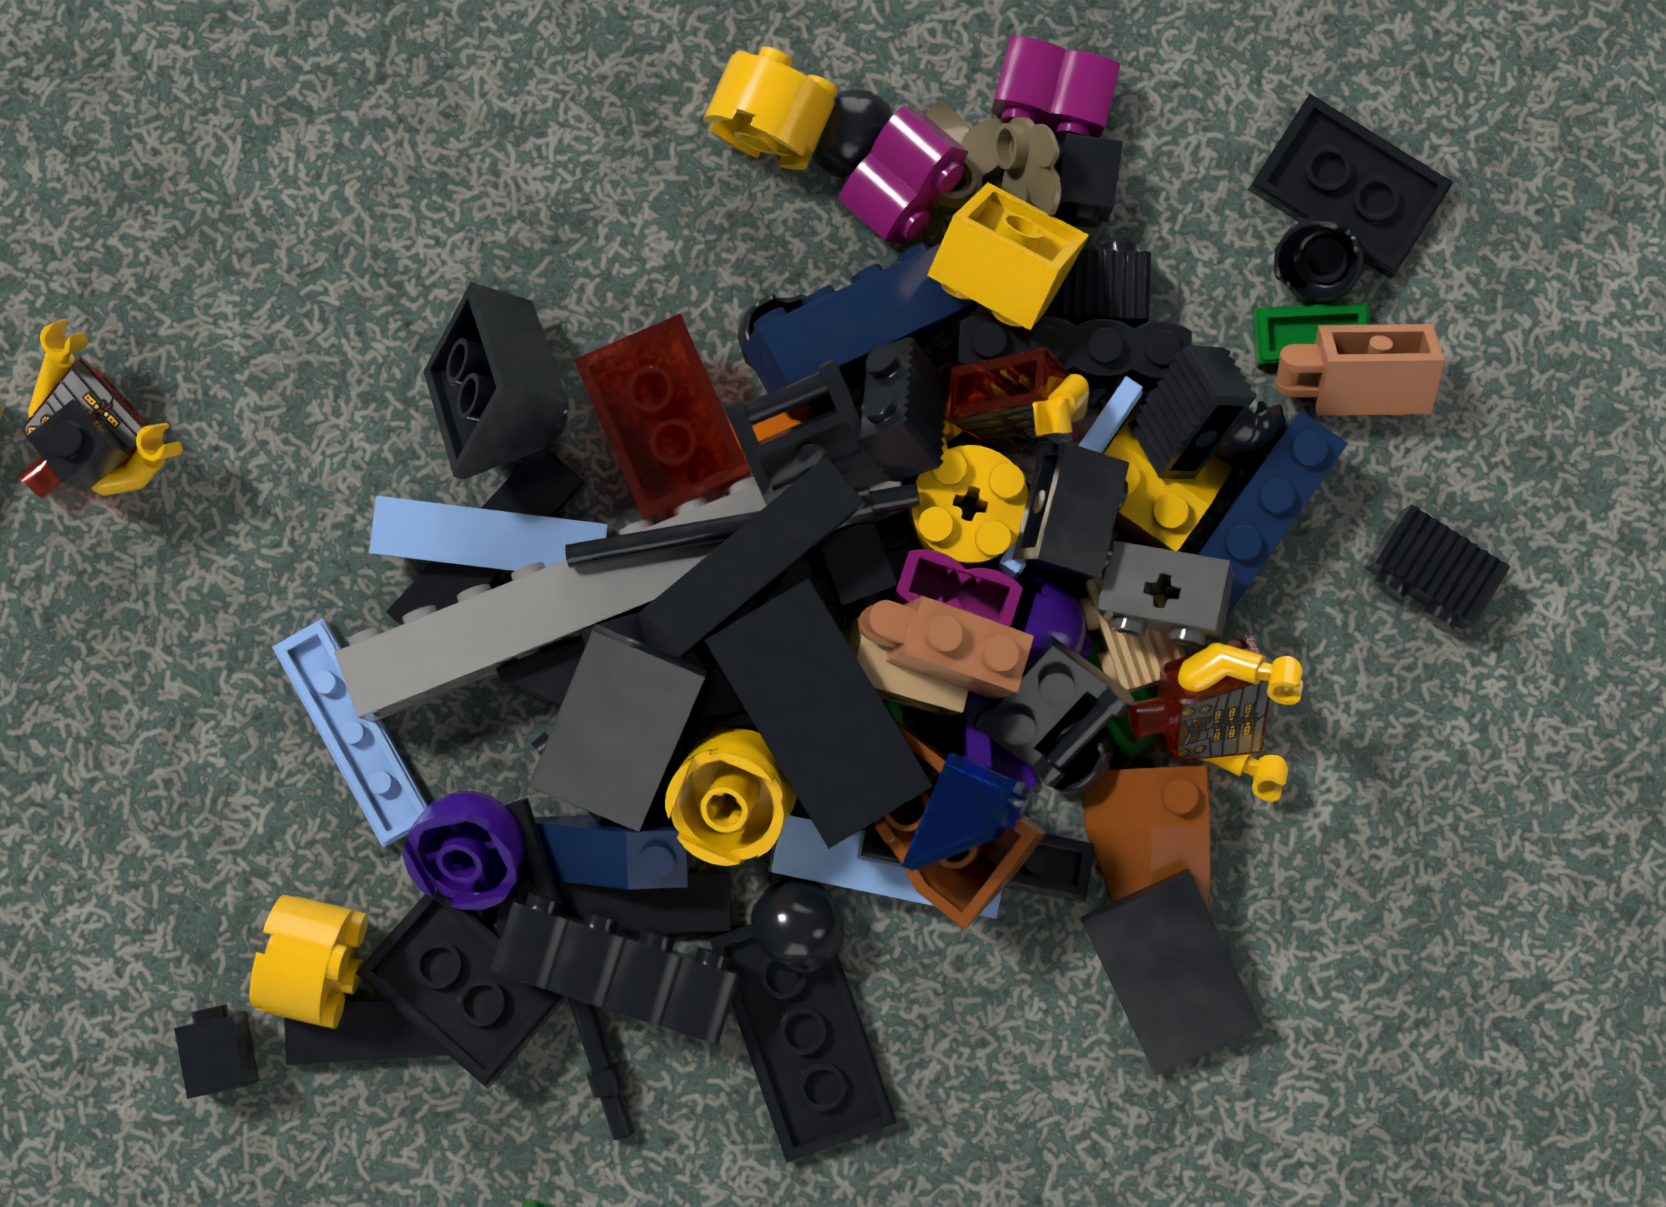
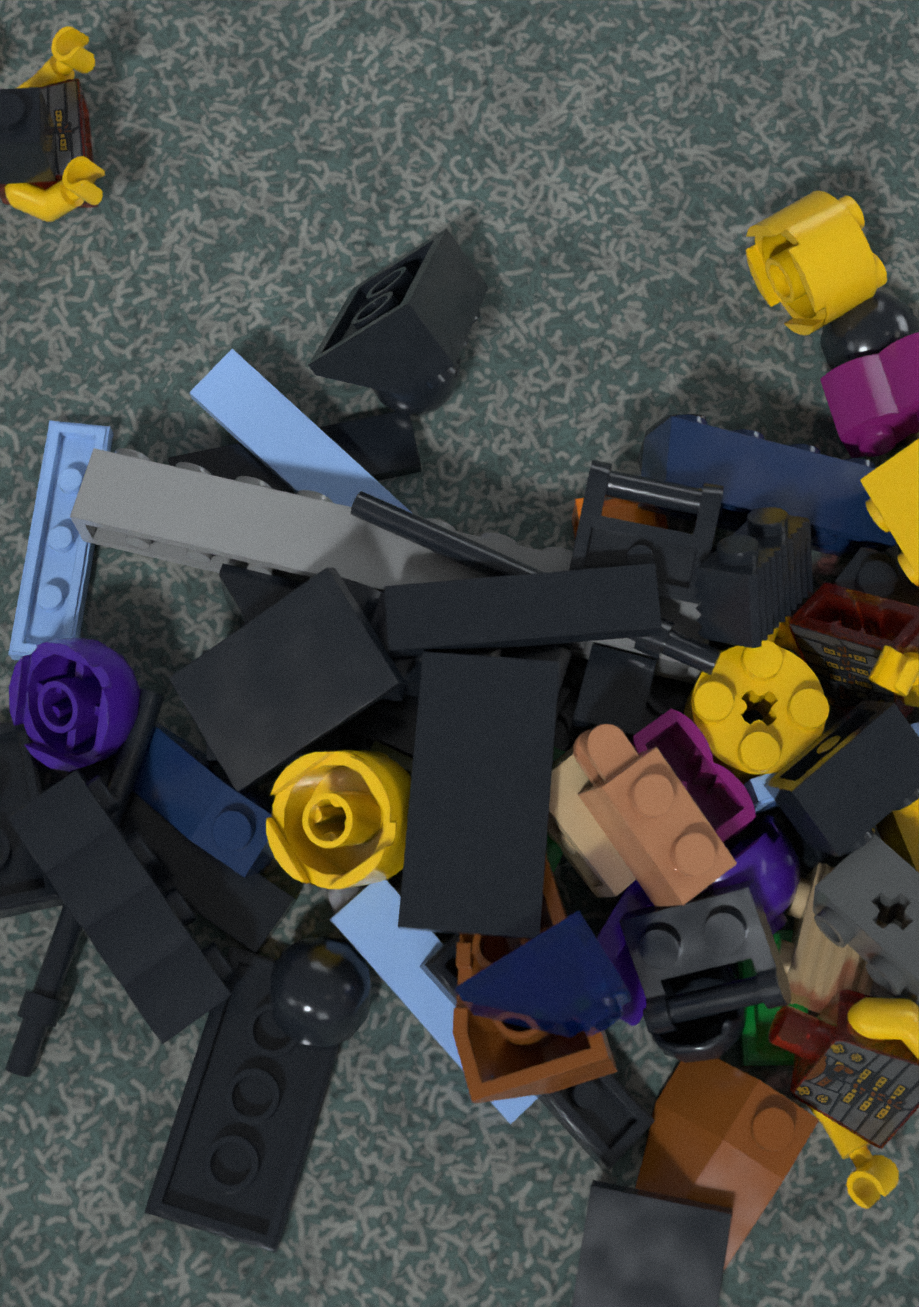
camera: 35 degrees right, 10 degrees down
(662, 418) = (529, 449): clear red slope -> none

